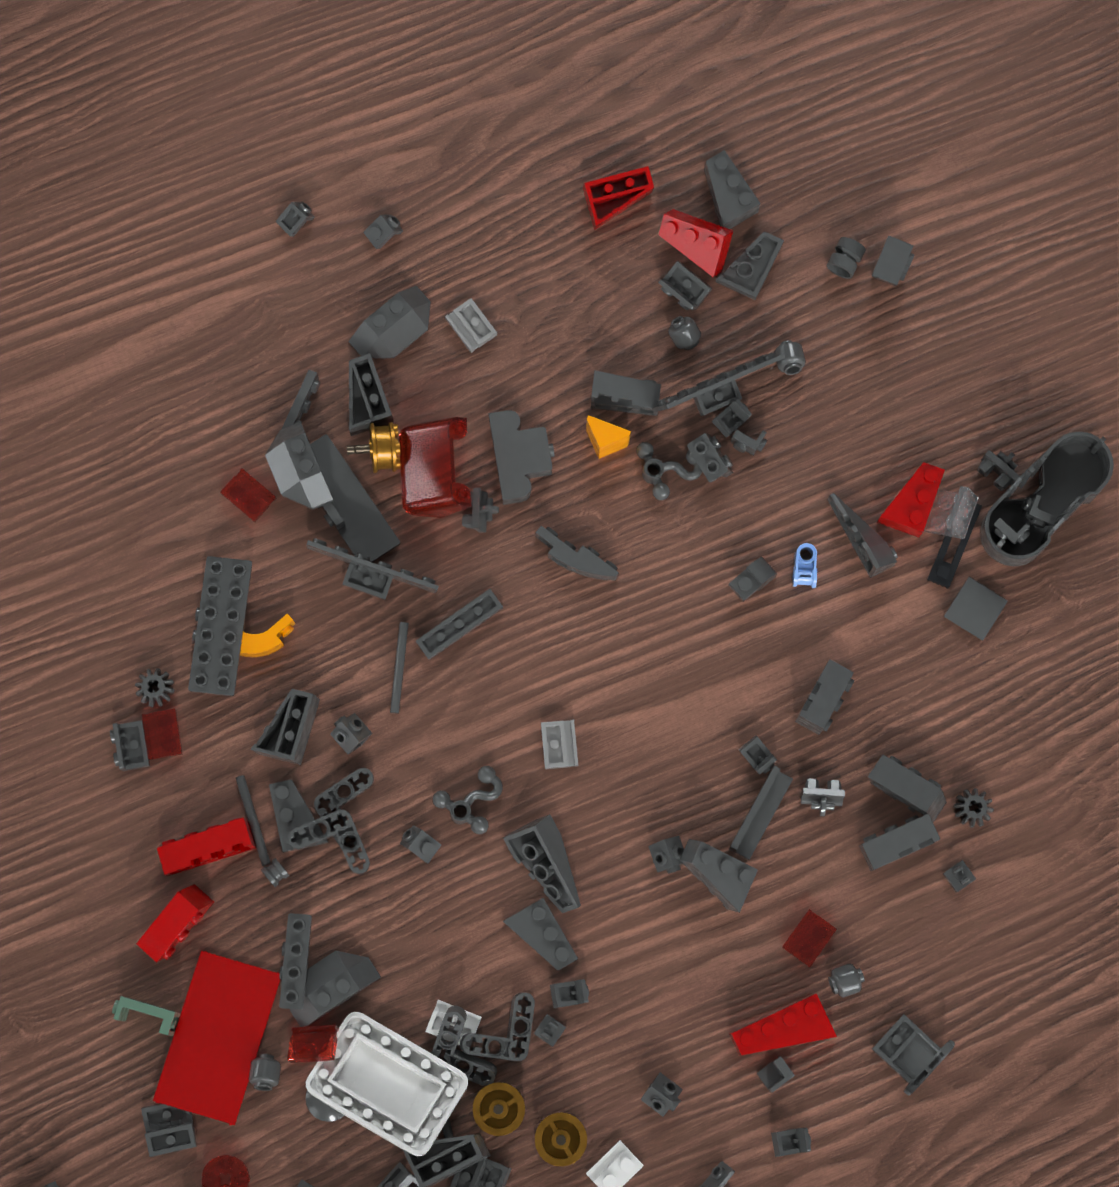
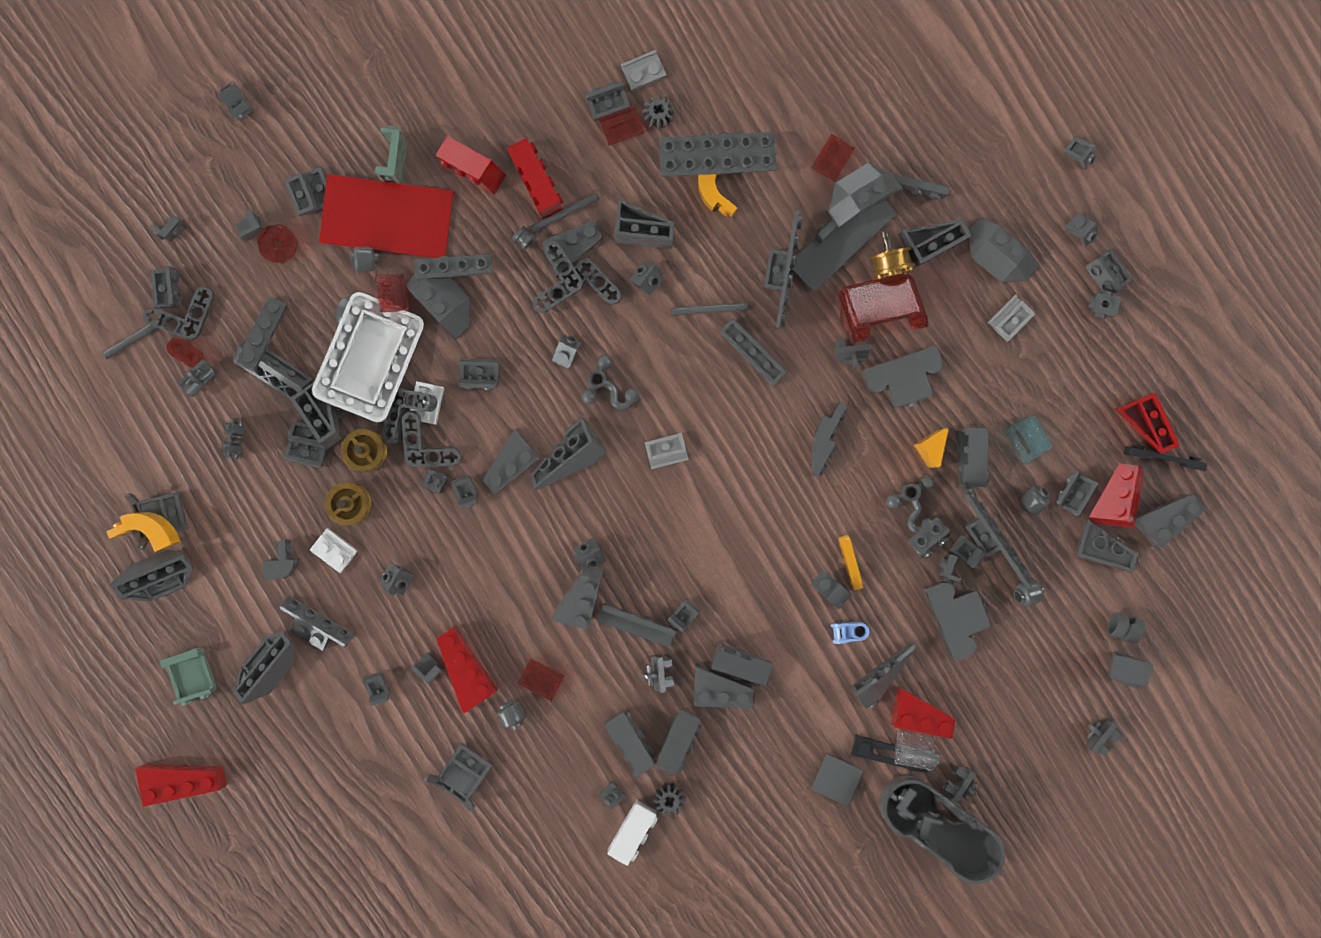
camera: 85 degrees right, 10 degrees up
(101, 698) = (643, 70): none -> light grey plate
(429, 953) = (479, 374): none -> dark grey bracket
(438, 210) = (1109, 272): none -> dark grey bracket
(476, 213) = (1111, 304): none -> dark grey brick
(611, 323) = (1033, 436): none -> clear light blue plate
(647, 211) = (1139, 451): none -> black container
(724, 552) = (850, 562): none -> light orange beam
(806, 442) = (957, 617): none -> dark grey brick
(853, 727) = (720, 691): none -> dark grey wedge
(963, 306) = (1099, 735): none -> dark grey hips
(1007, 857) = (632, 832): none -> white brick

